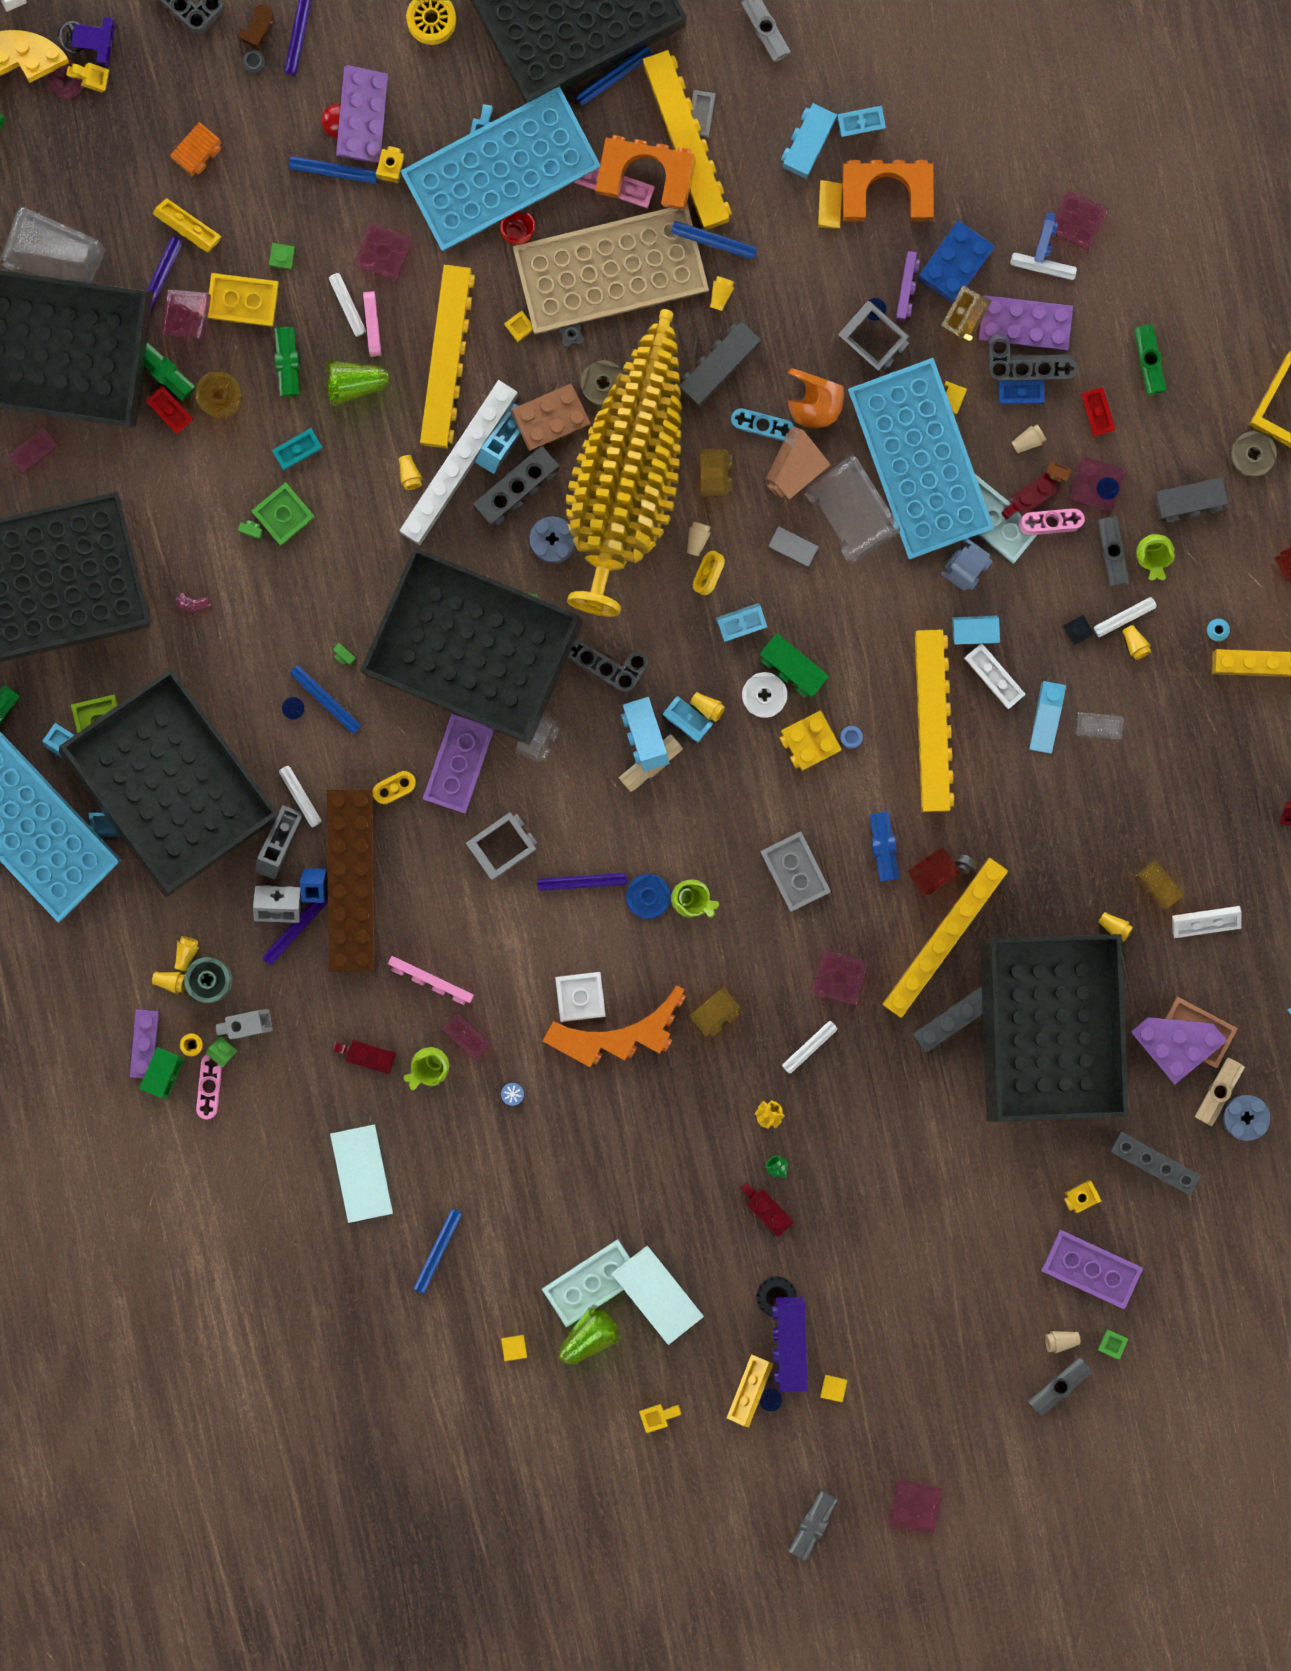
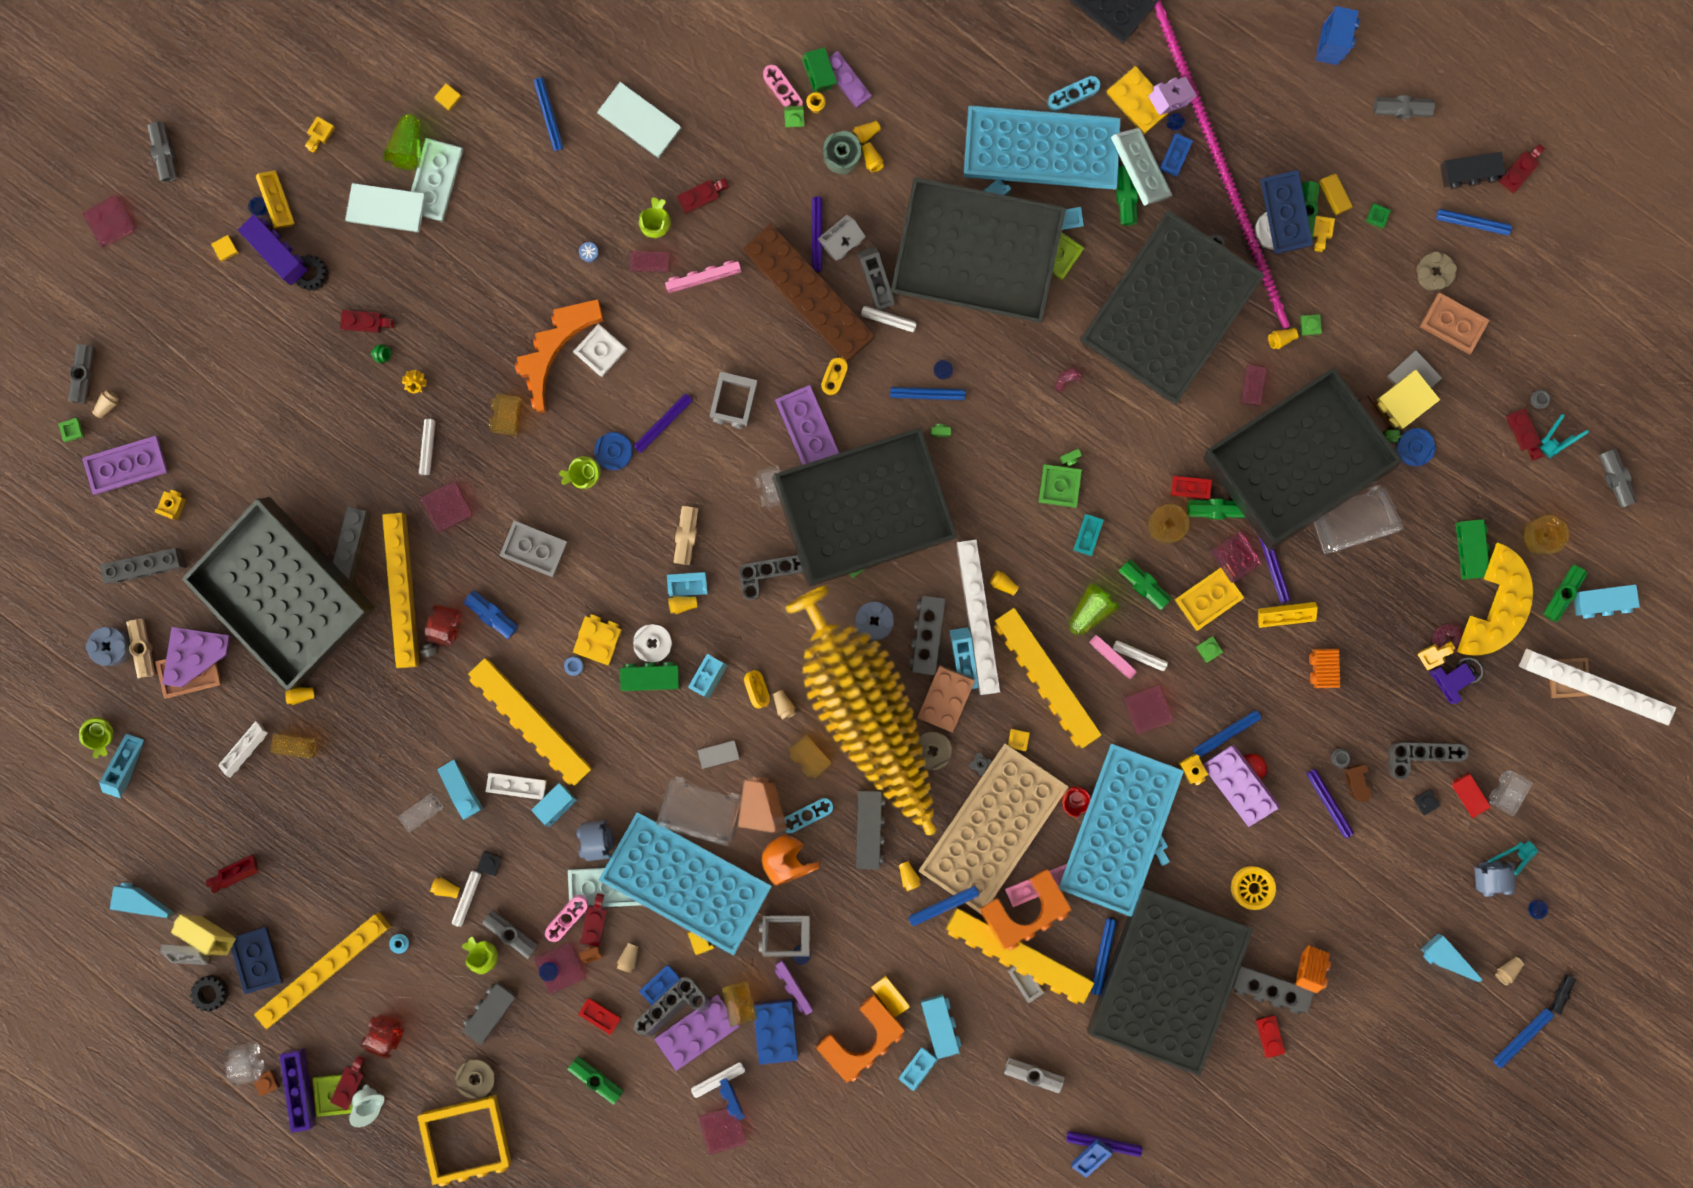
camera: 140 degrees right, 0 degrees up
(251, 1024) = (793, 146): light grey torso -> none
(314, 885) = (829, 269): blue brick -> none
(644, 734) = (704, 549): medium azure brick -> none

